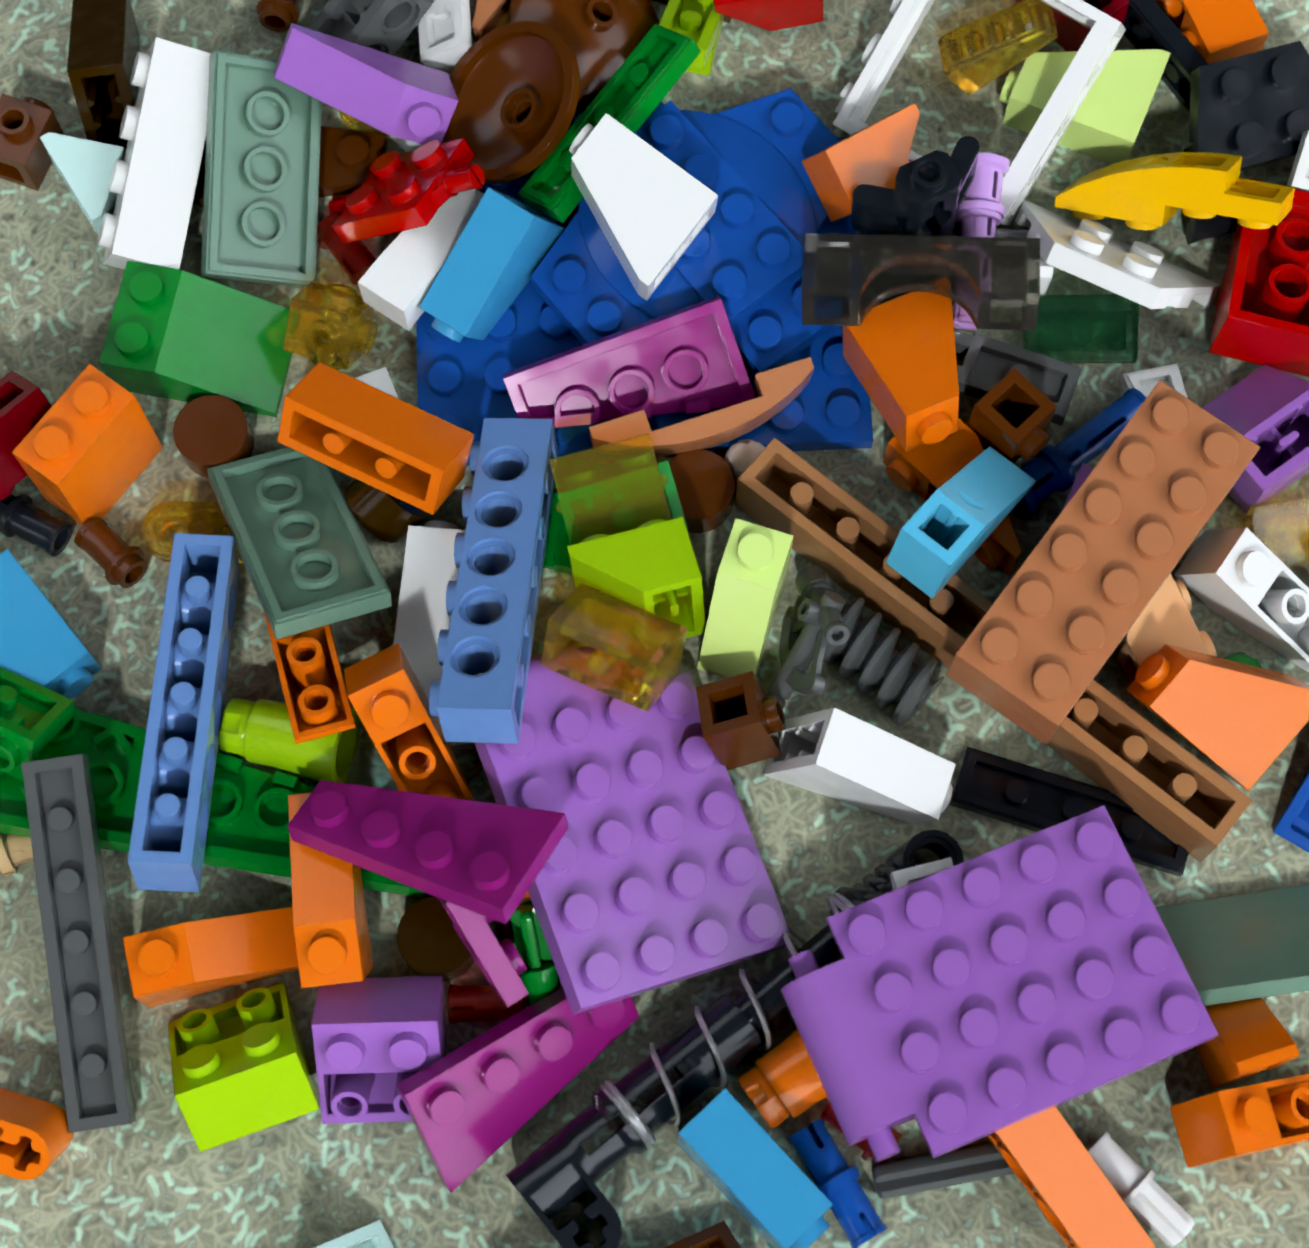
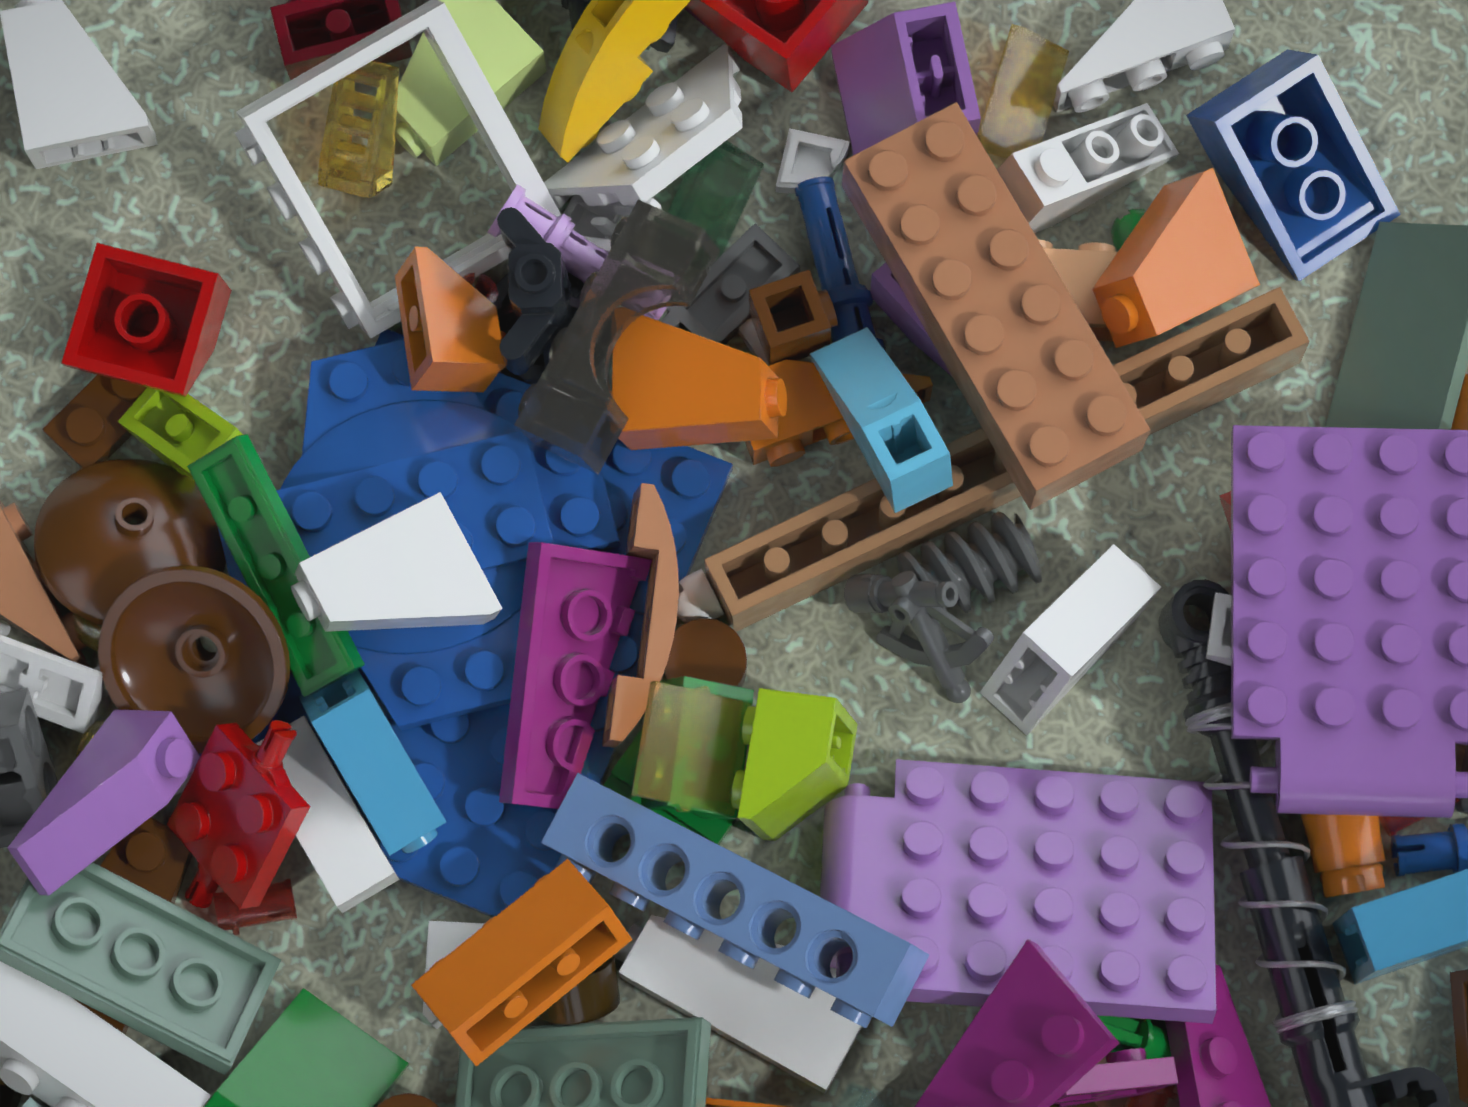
camera: 65 degrees left, 5 degrees up
(330, 325) = (347, 960): clear yellow brick -> none
(401, 725) = (851, 1063): orange slope -> none
(633, 652) = (855, 815): clear yellow brick -> none
(740, 720) = (975, 729): reddish brown brick -> none
(745, 599) = (861, 667): yellowish green slope -> none
(1043, 799) = (1187, 468): black tile -> none

